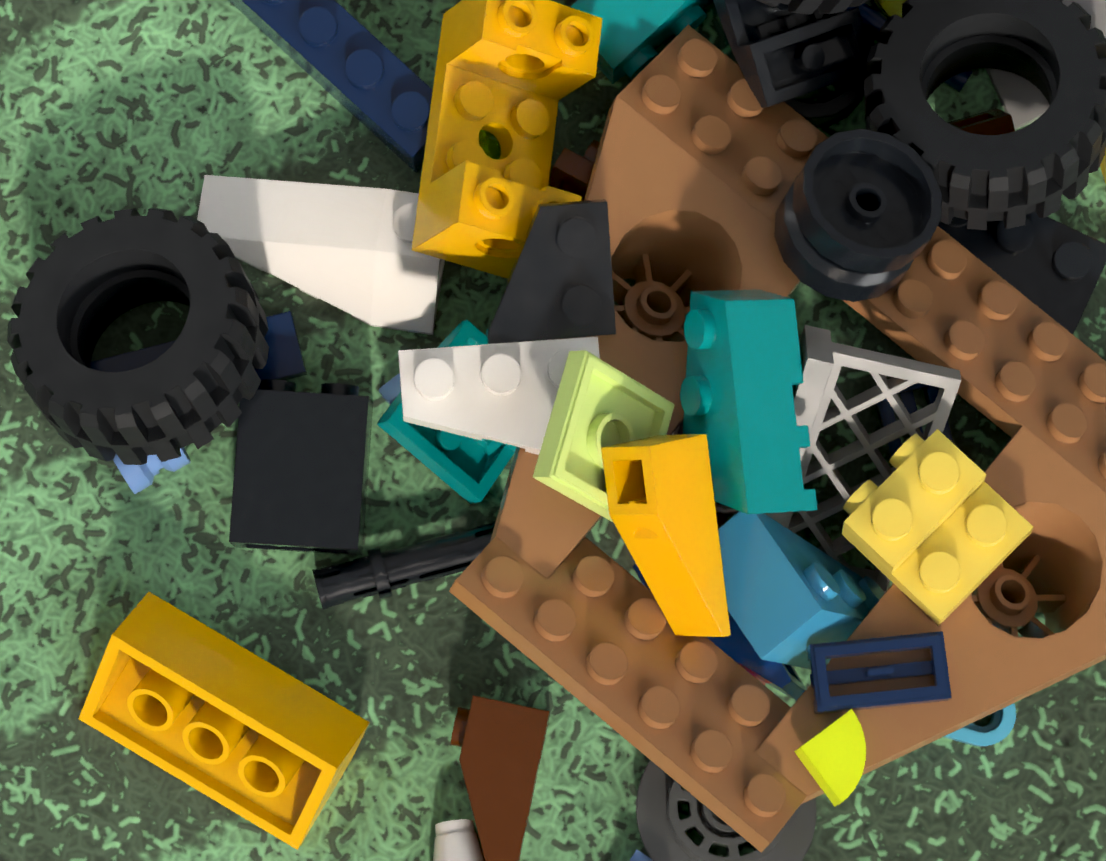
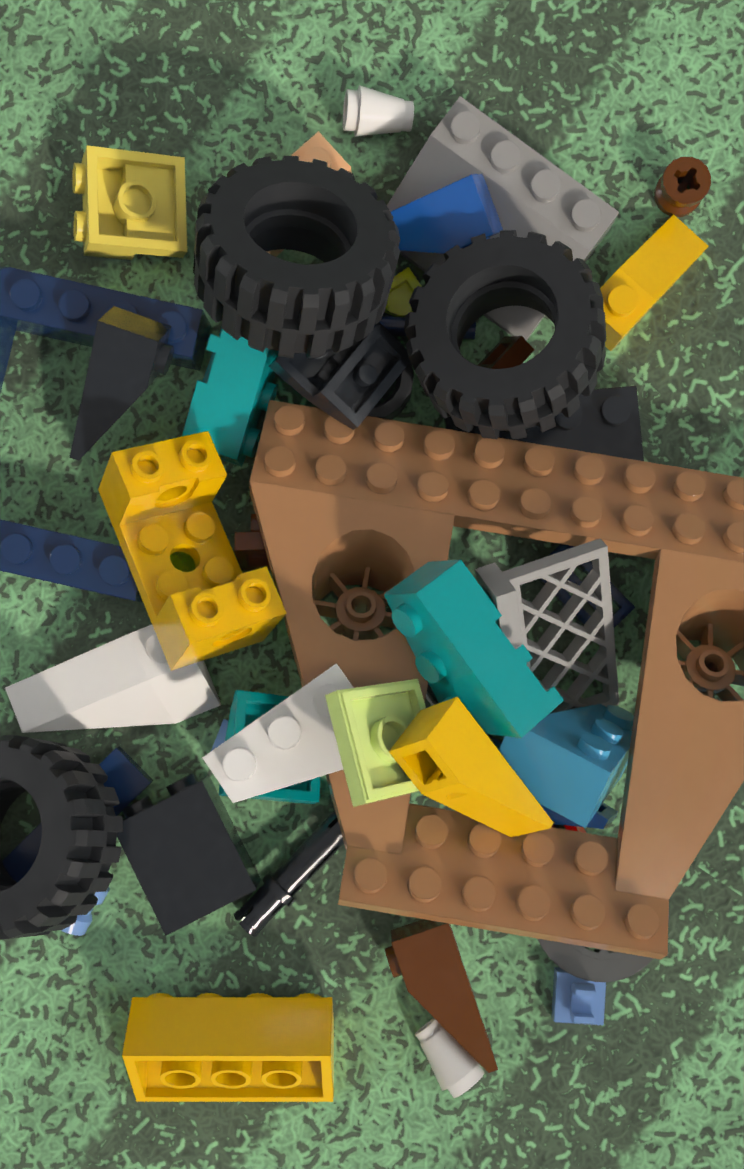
camera: 30 degrees left, 5 degrees up
(560, 278) = (285, 637): black wing -> none
(822, 679) = (632, 810): dark blue tile -> none
(836, 757) = (675, 863): neon yellow tile -> none
(857, 215) = (468, 470): black wheel -> none
(933, 524) = (646, 657): light yellow plate -> none

